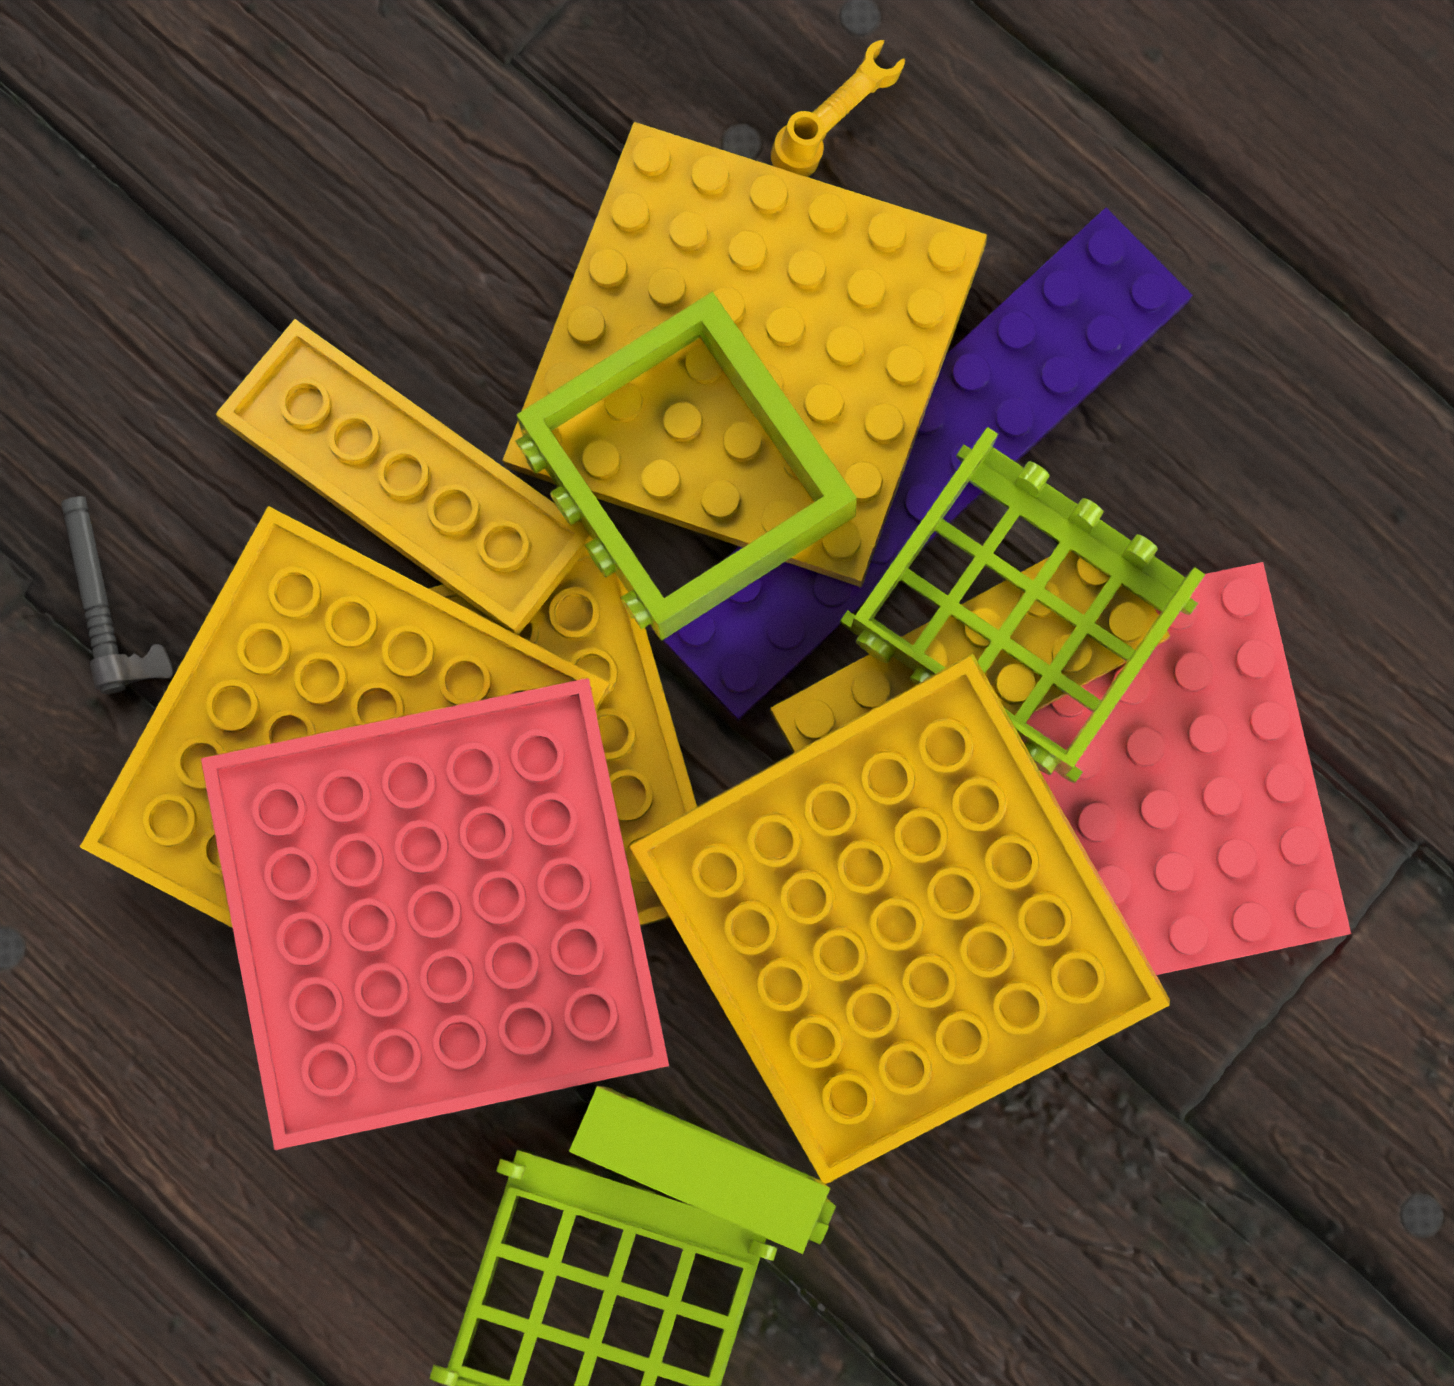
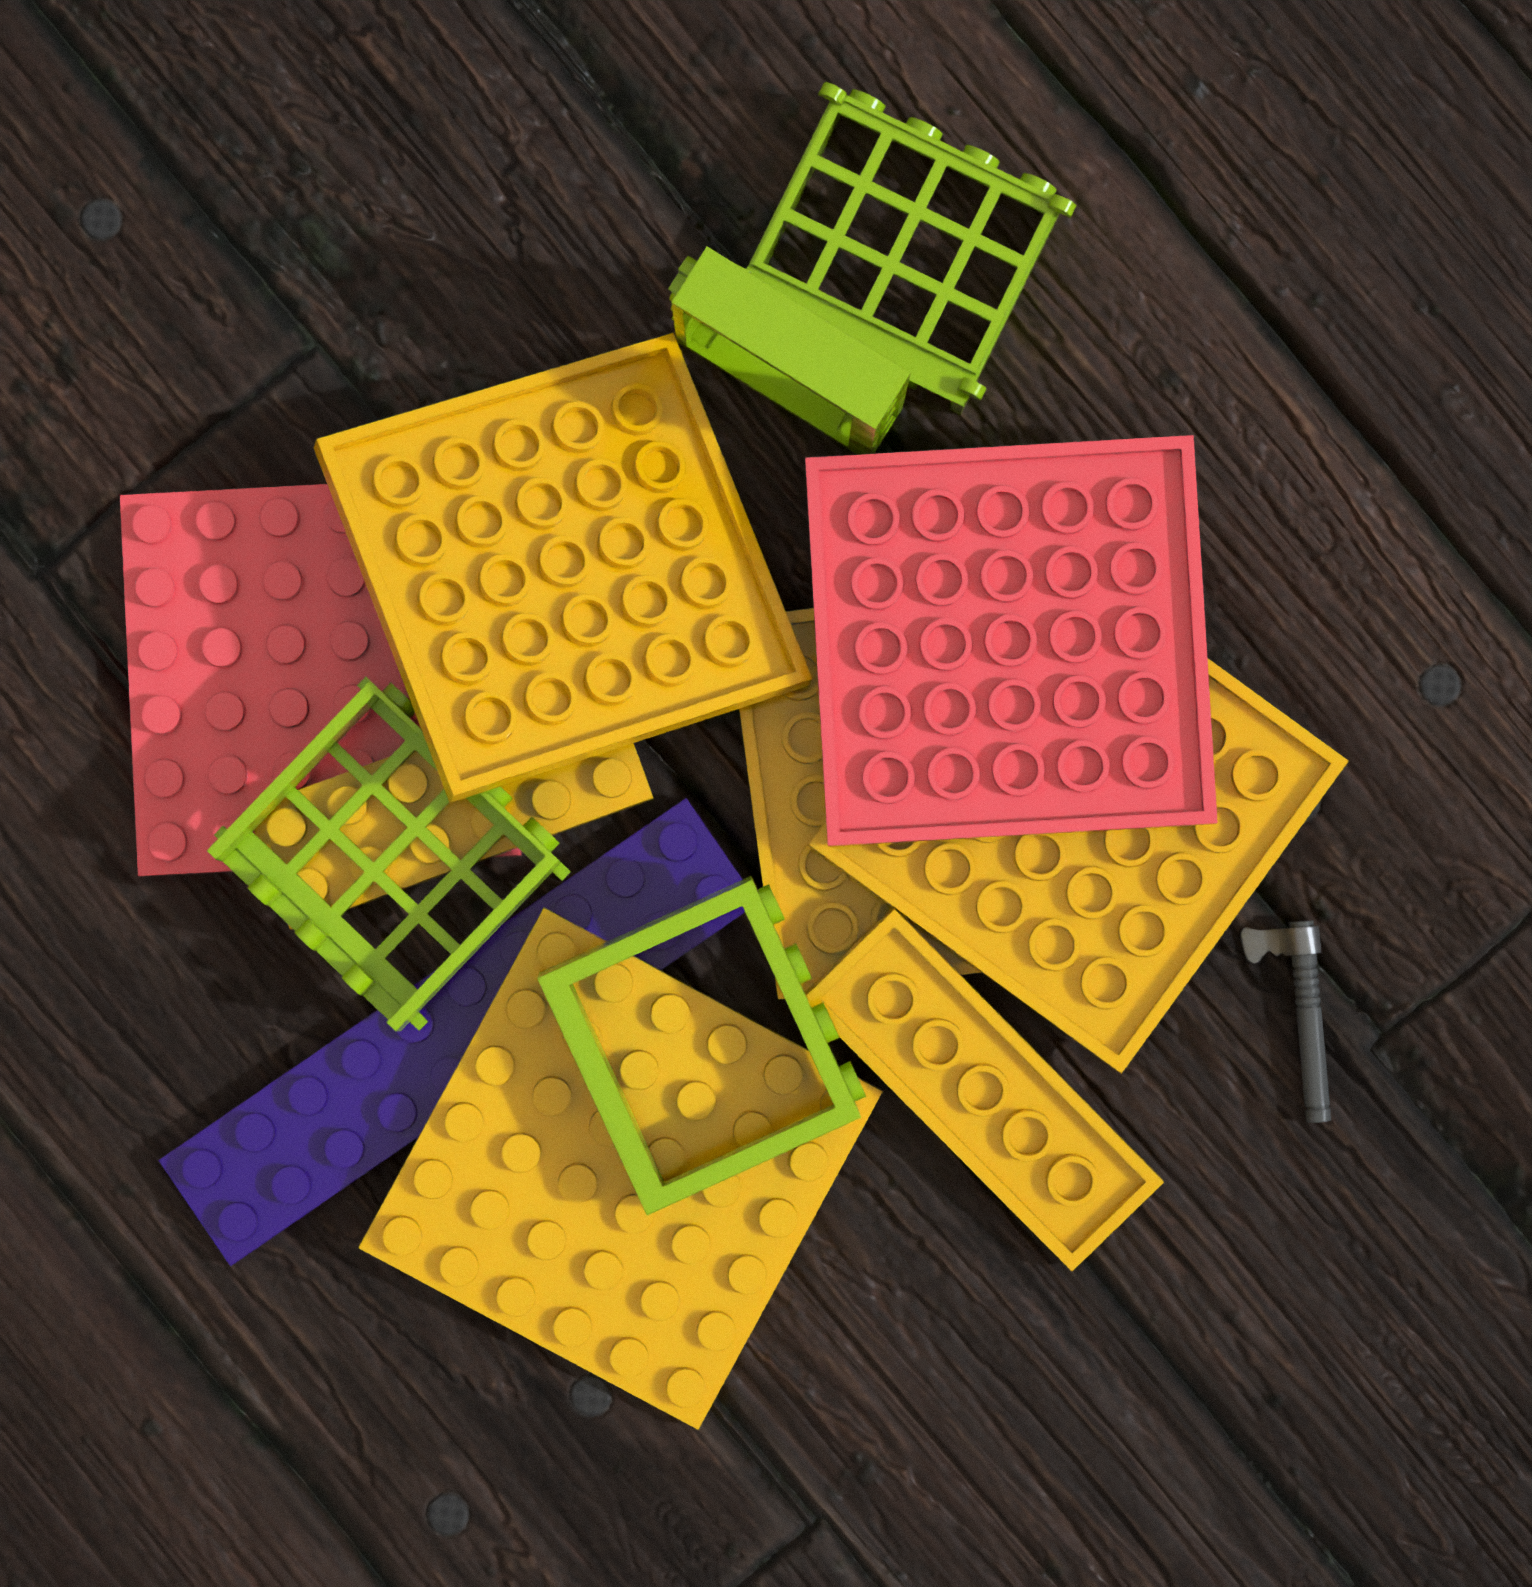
camera: 170 degrees left, 5 degrees up
(800, 142) = (535, 1361): yellow brick -> none

